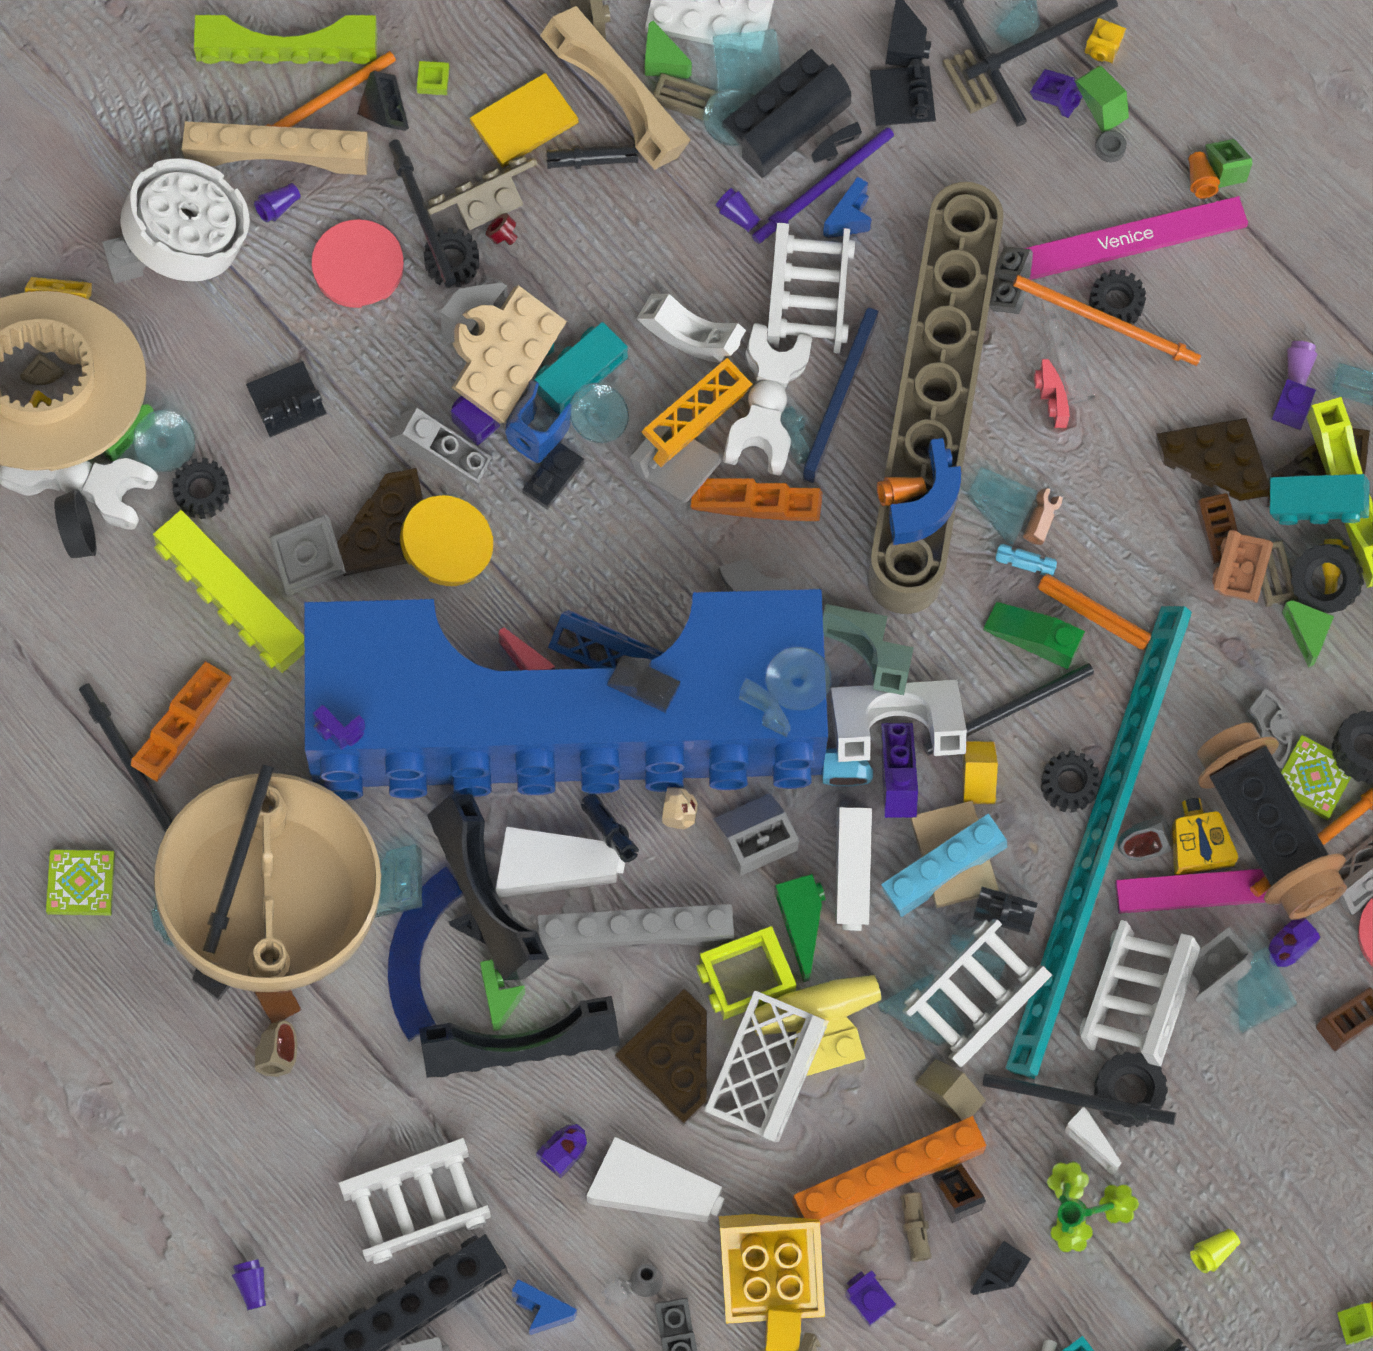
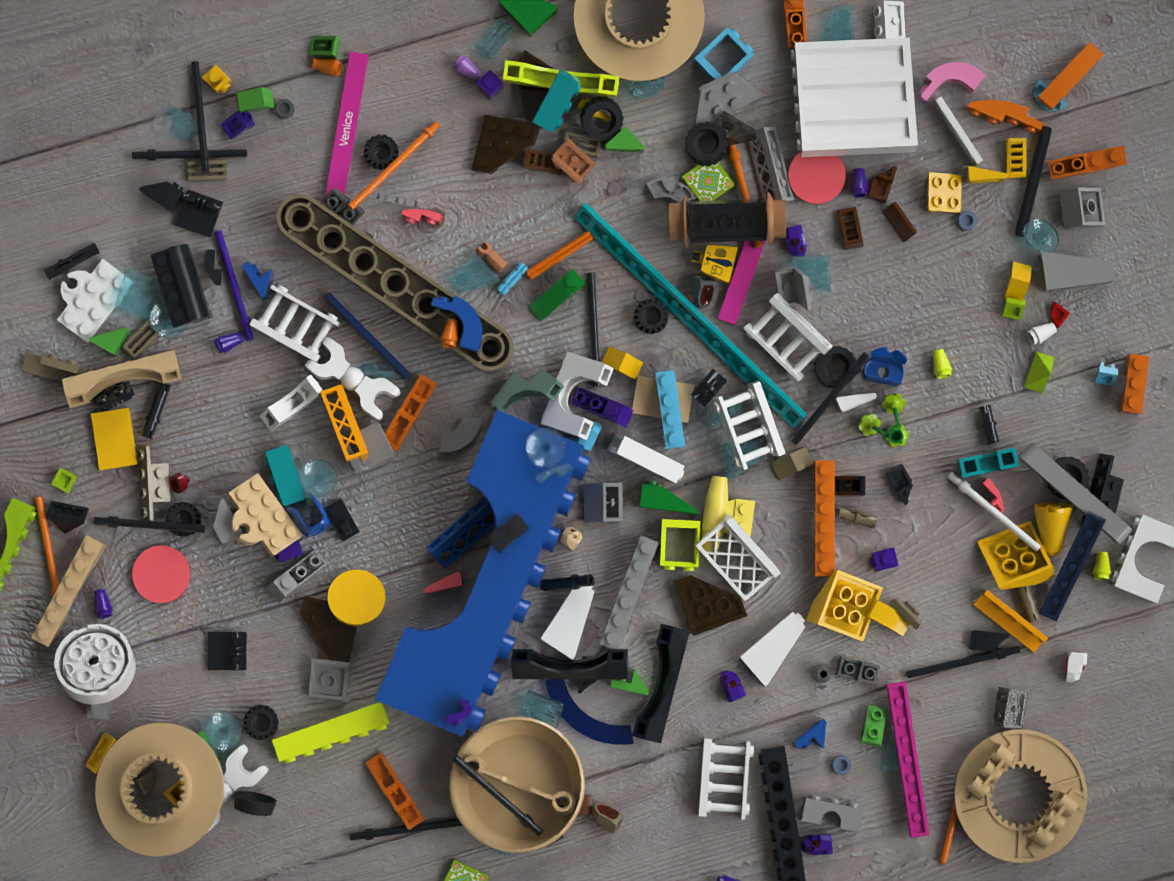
camera: 60 degrees left, 15 degrees up
(576, 85) = (105, 398): none -> black hinge
(1180, 1157) = (891, 360): none -> blue piece

